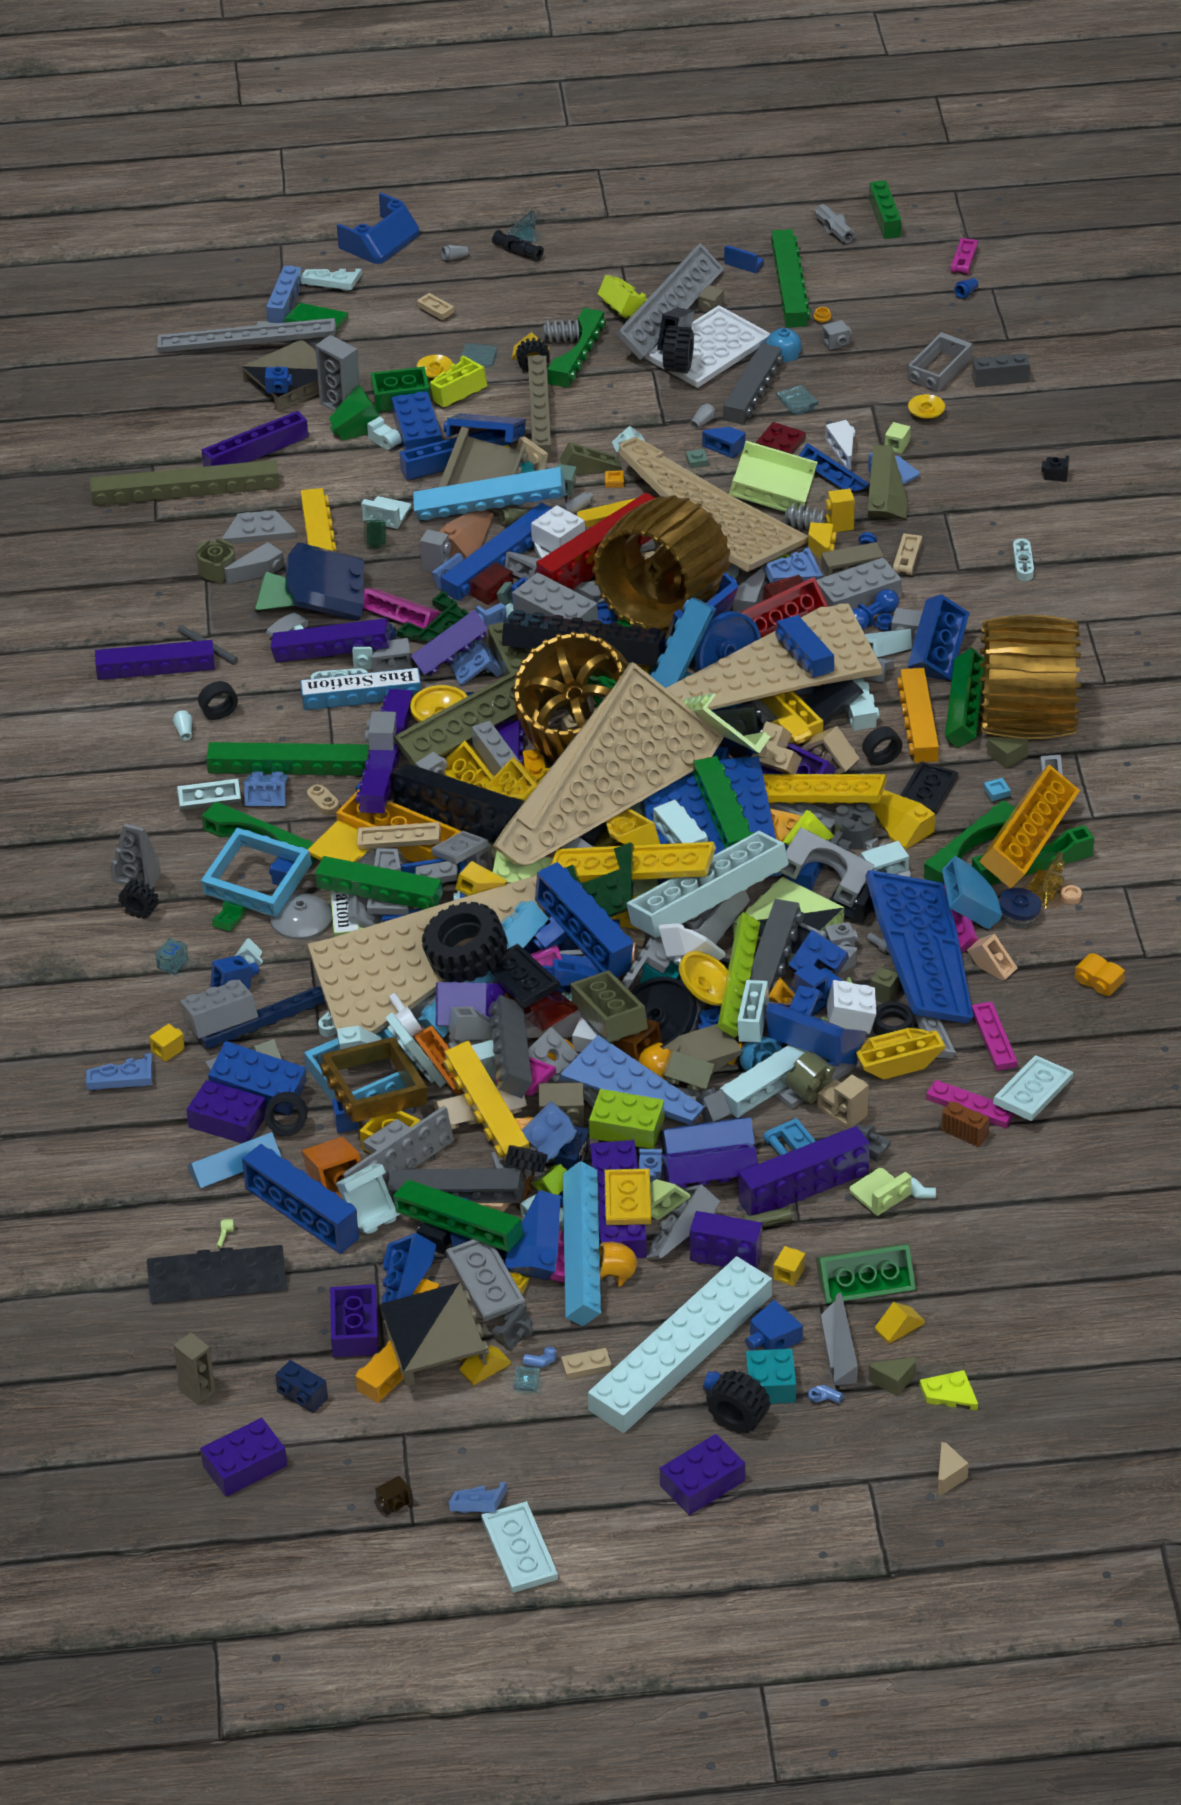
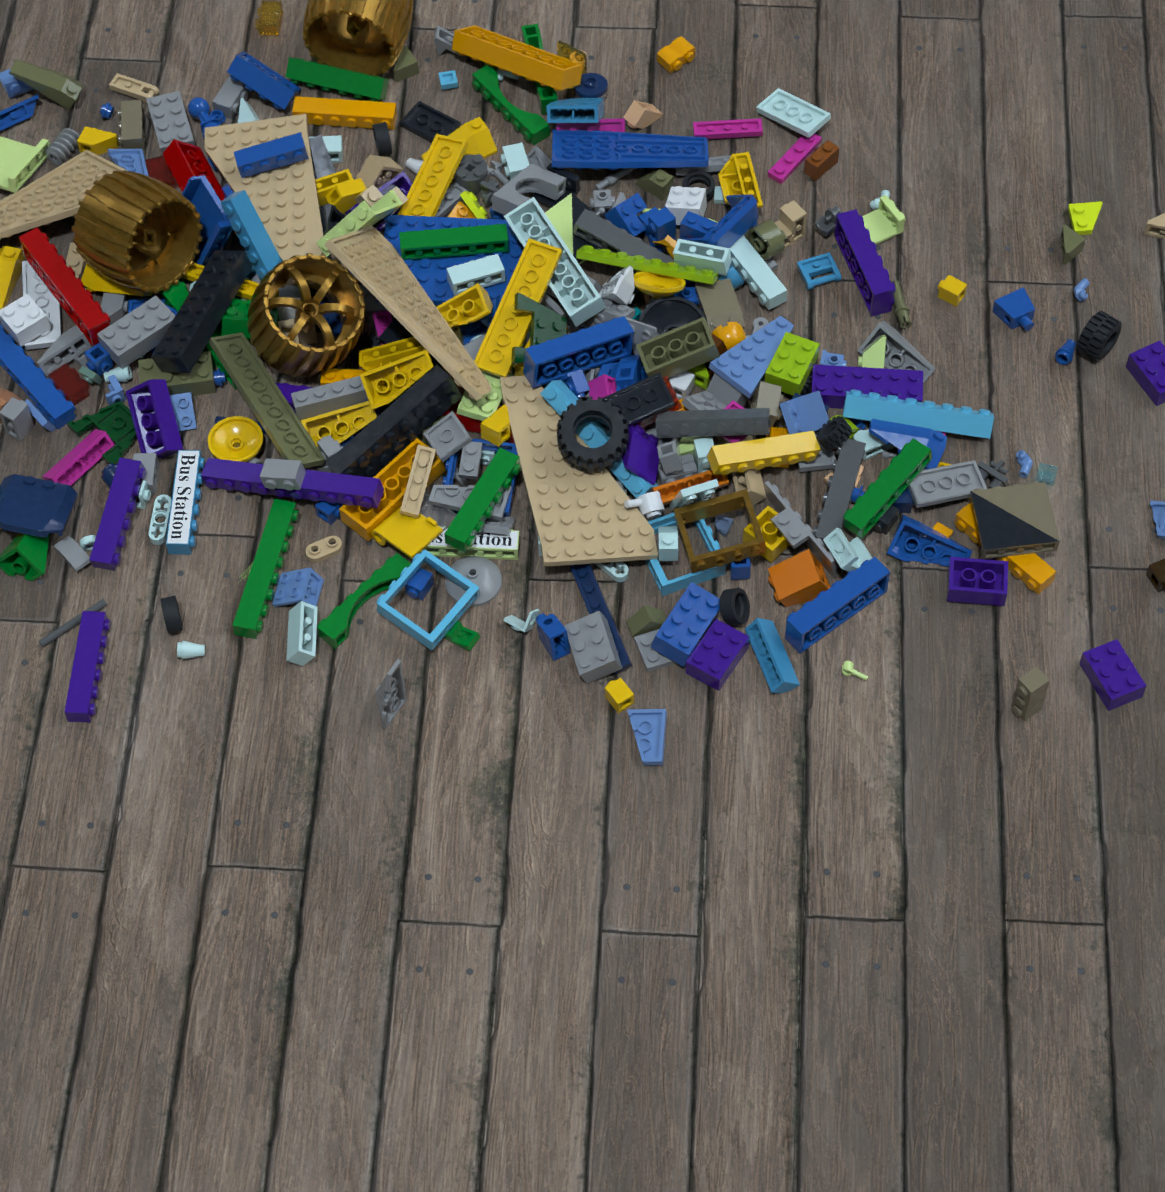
camera: 80 degrees left, 15 degrees up
(138, 899) = (432, 700): black tyre -> none
(172, 956) = (508, 682): clear light blue brick -> none
(216, 1274) = (904, 678): black bracket -> none
(301, 1386) = (1041, 627): dark blue brick -> none
(586, 1363) = (1031, 435): tan plate -> none
(617, 1261) = (938, 393): light orange piece -> none
(627, 1197) = (882, 373): yellow tile -> none
(679, 1344) = (1026, 369): light aqua brick -> none
(687, 1069) = (750, 314): olive brick -> none
(707, 1135) = (806, 312): slope -> none
(708, 1164) = (847, 319): dark purple brick -> none
(714, 1104) = (774, 308): dark grey brick -> none
(721, 1238) = (930, 321): dark purple brick -> none
(774, 1372) = (1065, 317): teal brick -> none
(839, 1343) = (1034, 271): light grey wedge -> none
(840, 510) = (68, 115): yellow brick -> none
(866, 1272) = (964, 245): green slope -> none
(898, 1322) = (1016, 235): yellow slope -> none
(1020, 565) = (178, 16): light aqua beam -> none

